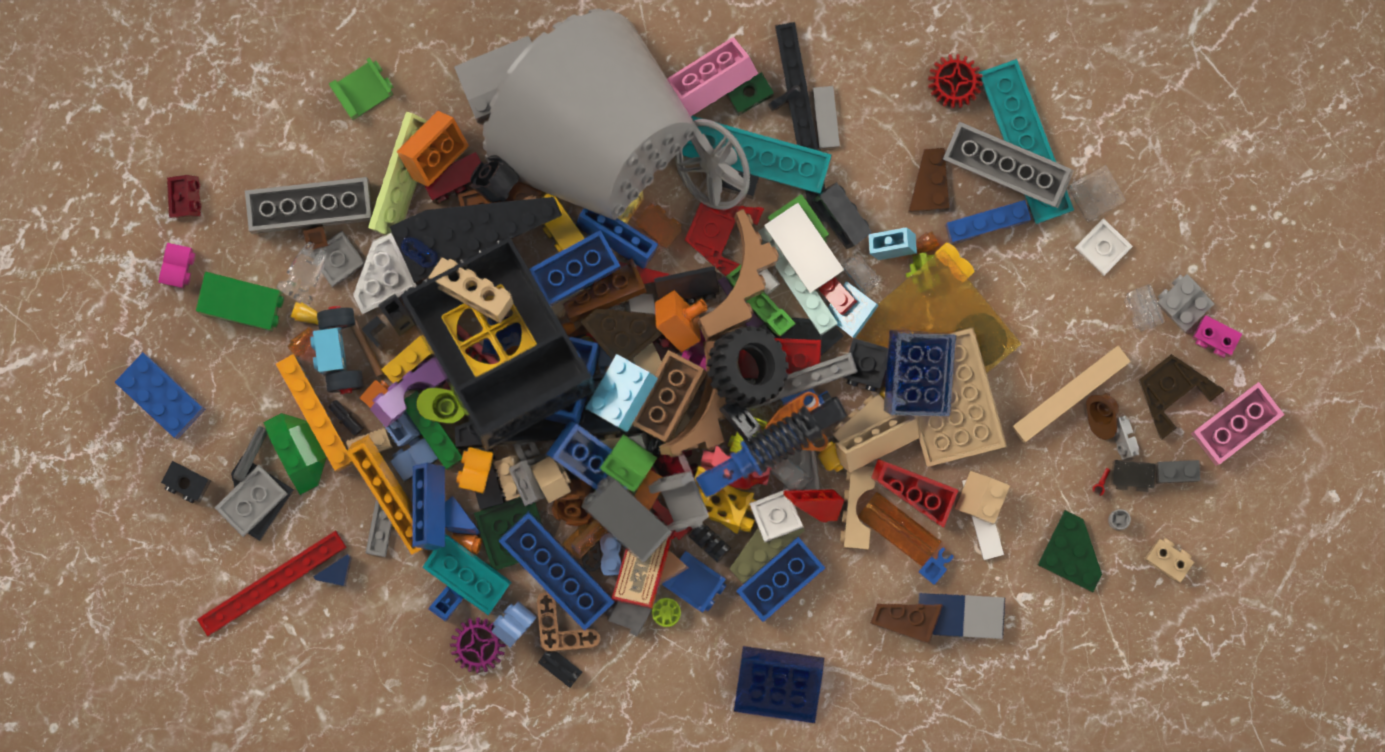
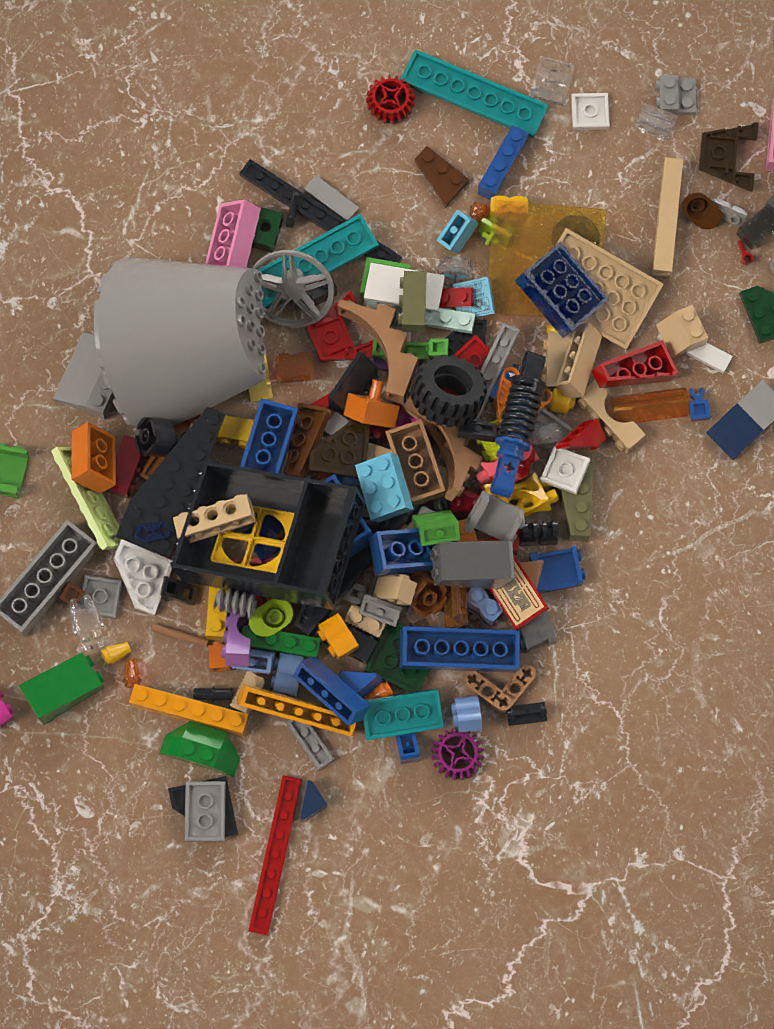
camera: 50 degrees left, 10 degrees down
(160, 395) = (69, 804): blue brick -> none
(197, 486) = (134, 845): black brick -> none
(250, 454) = (172, 780): dark grey axle -> none
(330, 350) = (158, 658): brick -> none
(372, 329) = (172, 616): black panel -> none
(424, 369) = (235, 602): none -> light grey piece
(619, 236) = (285, 392): blue brick -> none
(666, 612) = (559, 607): lime wheel -> none
(779, 684) = (680, 579): clear blue slope -> none
(780, 579) = (610, 511): blue brick -> none
(796, 267) = (413, 301): none -> olive brick
(842, 215) = (406, 246): black brick -> none
(870, 364) = (524, 317): black plate -> none
(908, 620) = (718, 455): reddish brown wing -> none
(1008, 164) = (479, 112): light grey brick -> none
(1217, 333) = (718, 95): dark pink brick -> none

